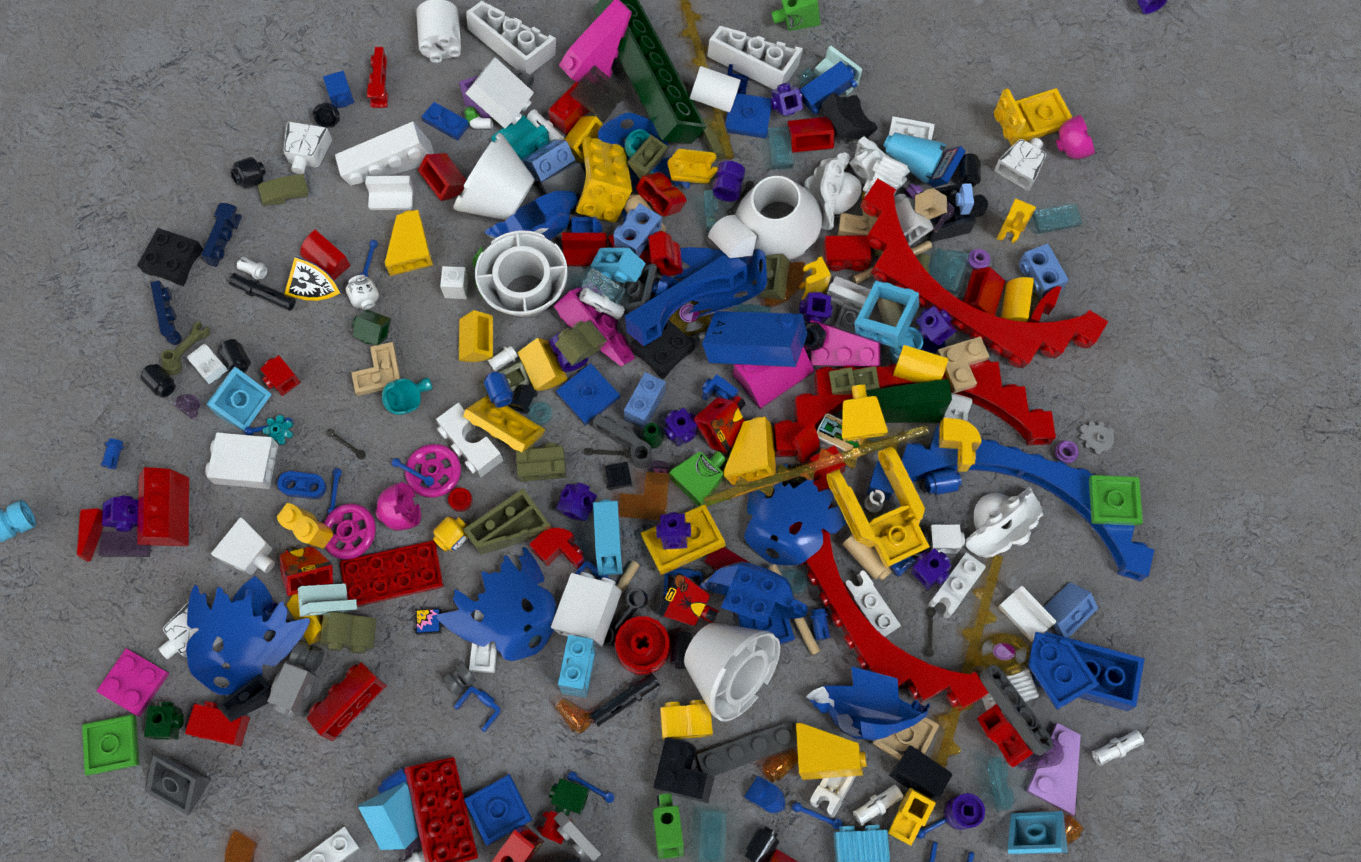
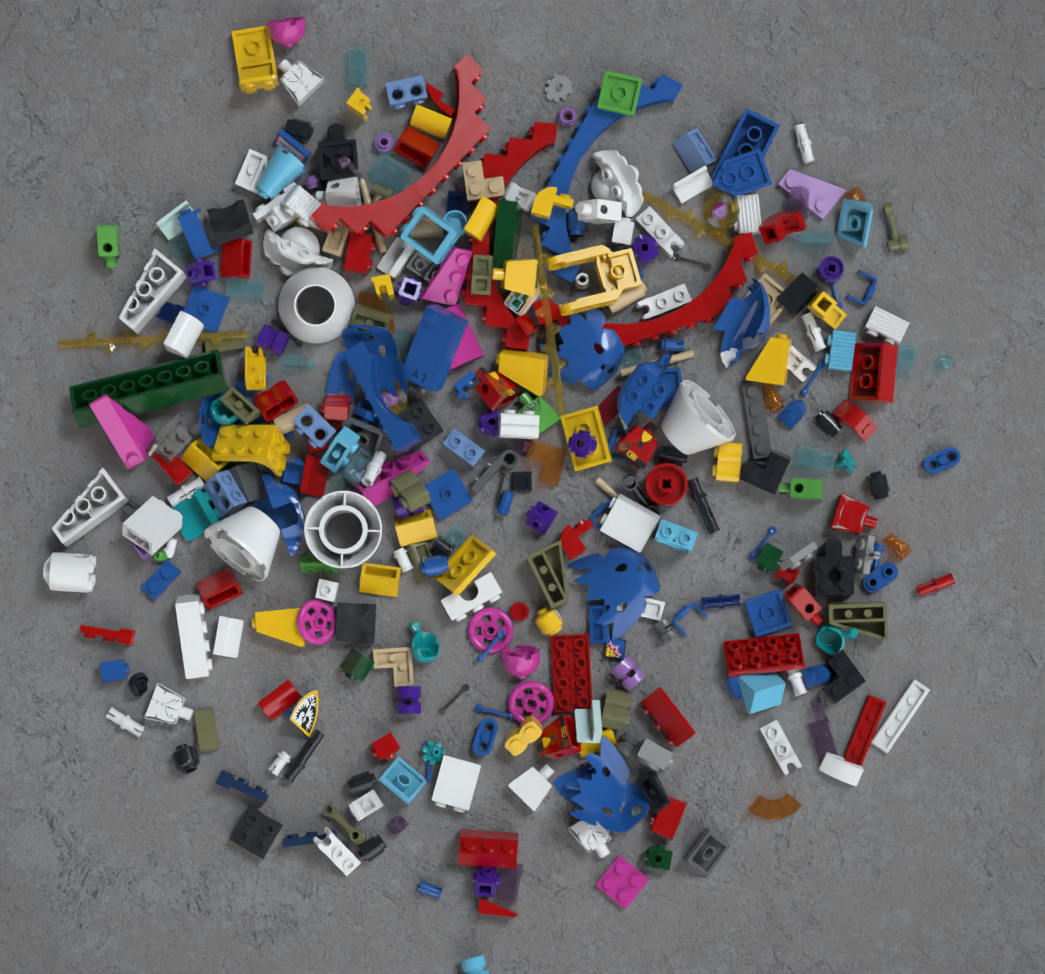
camera: 80 degrees left, 15 degrees up
(110, 745) = (668, 900): bright green plate -> none
(148, 338) = (337, 852): none -> white plate
(284, 111) = (125, 722): none -> white pin
(335, 390) = (408, 692): none -> dark purple wheel
(362, 292) = (322, 669): white head -> none
(373, 244) = (303, 668): blue hinge -> none
(403, 291) = (303, 616): none -> dark pink plate
(403, 634) = (623, 668): none -> medium lavender wheel
(421, 319) = (355, 622): none -> black brick
(443, 596) = (598, 633): none -> blue tile
(505, 744) = (720, 601): none -> clear blue pin
(541, 463) = (502, 540): olive brick -> none
(574, 716) = (708, 546): clear orange cone -> none
(587, 460) = (505, 503): none -> blue pin
(607, 537) = (577, 496): medium azure brick -> none
(654, 439) = (494, 453): dark green cone -> none
(681, 449) = (518, 425): none -> white brick
(733, 237) = (330, 347): white brick -> none
(819, 336) = (436, 294): black plate -> none
(930, 203) = (338, 175): tan plate -> none
(936, 325) = (447, 197): dark purple brick -> none
(964, 500) = (590, 211): none -> white torso
(965, 199) = (338, 145): light blue plate -> none
(999, 687) = (767, 216): dark grey beam -> none

